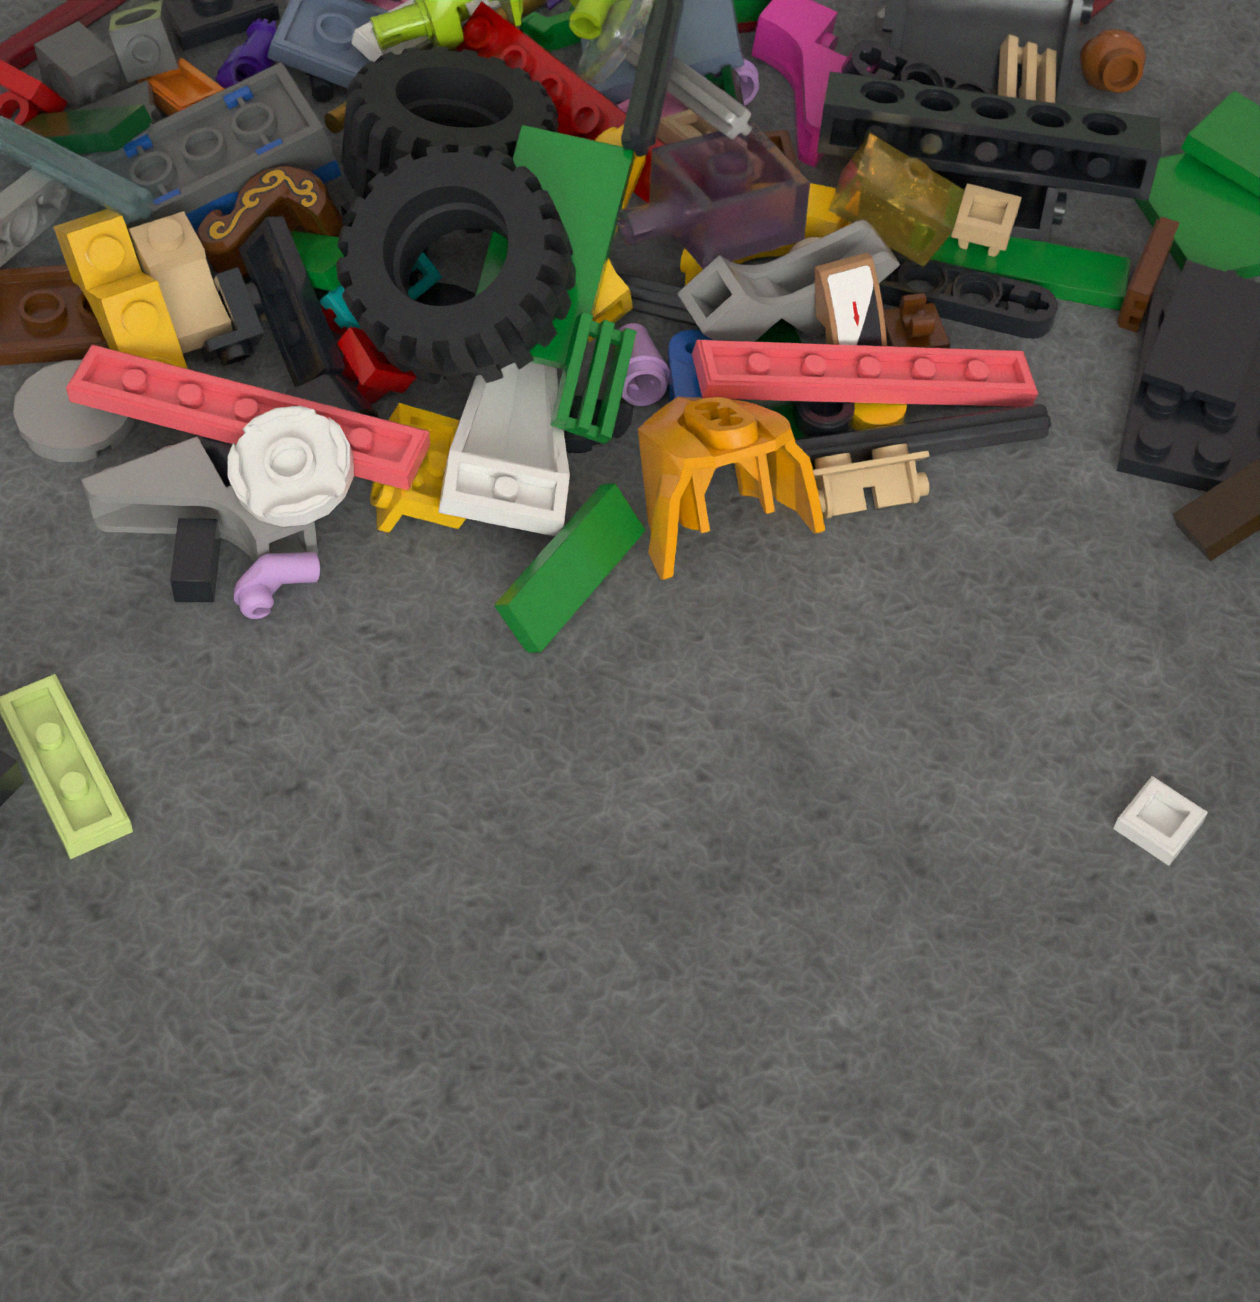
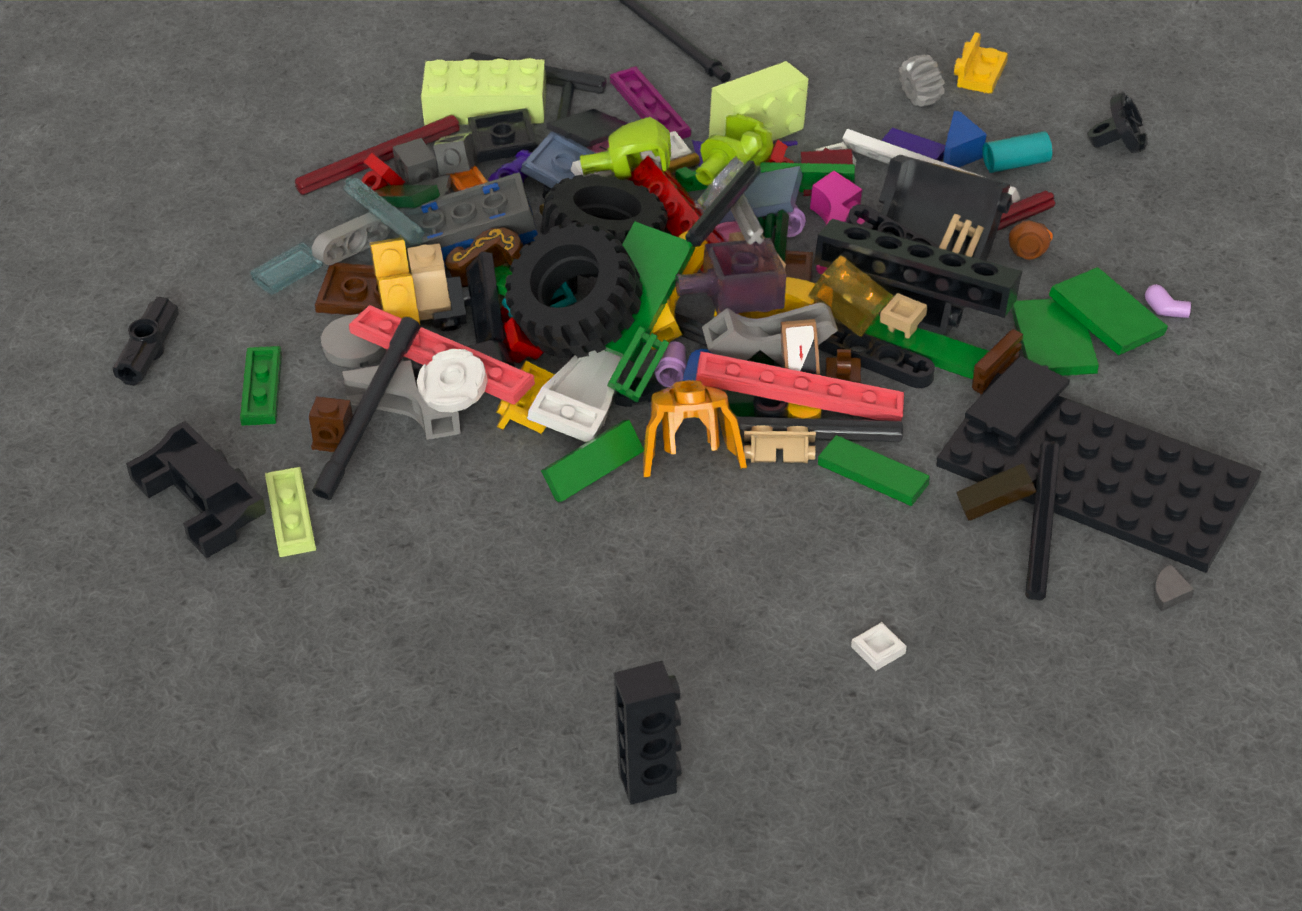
camera: 20 degrees right, 10 degrees down
(89, 583) = (328, 422): none -> reddish brown brick
(123, 668) = (335, 468): none -> black piece
(195, 560) = (392, 424): black piece -> none
(258, 584) = (426, 438): lavender arm -> none
(900, 1108) = (647, 731): none -> black brick
(1027, 498) = (873, 470): none -> green tile

